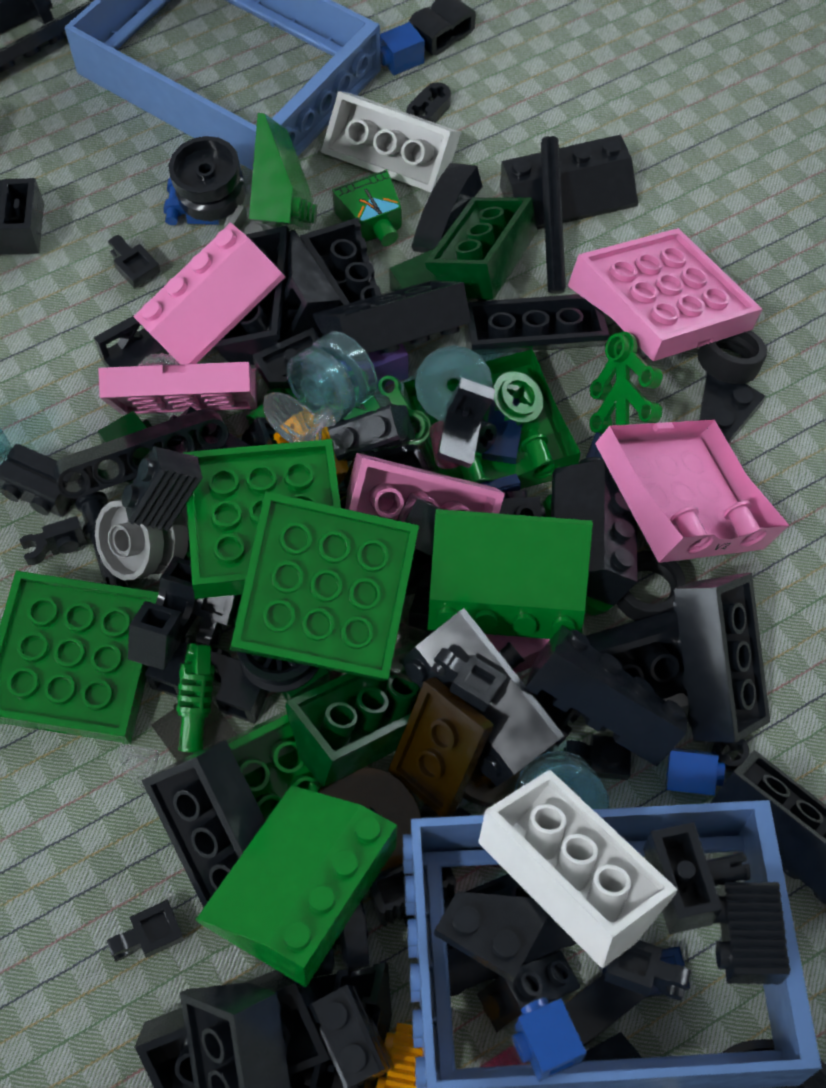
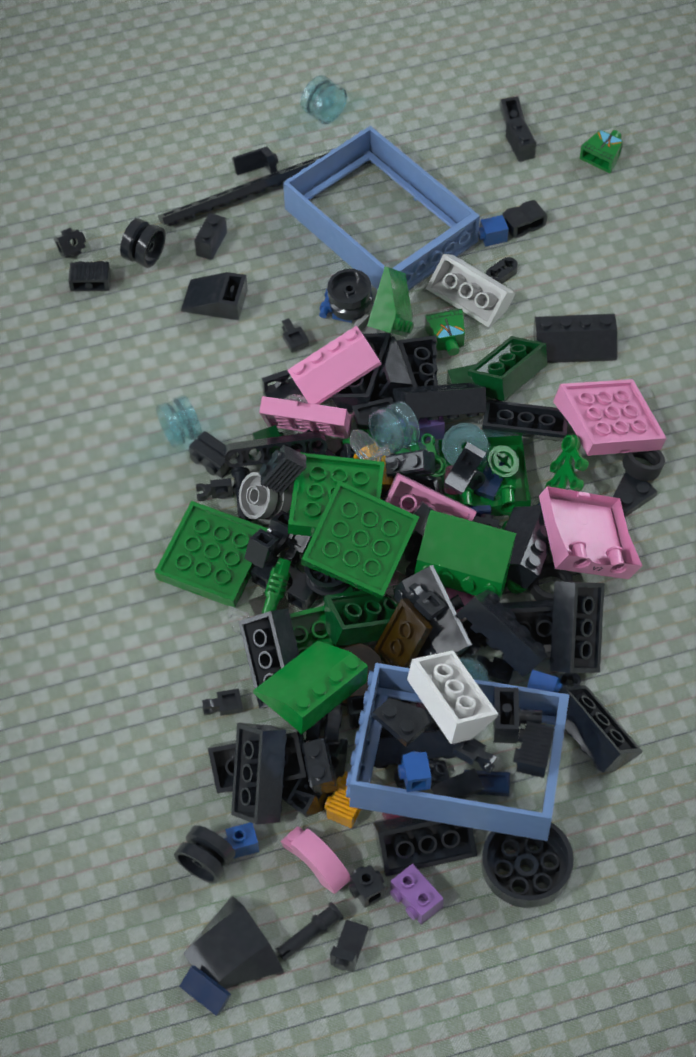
camera: 15 degrees right, 5 degrees down
(445, 204) = (496, 333): black slope -> none
(553, 215) = (557, 355): black axle -> none

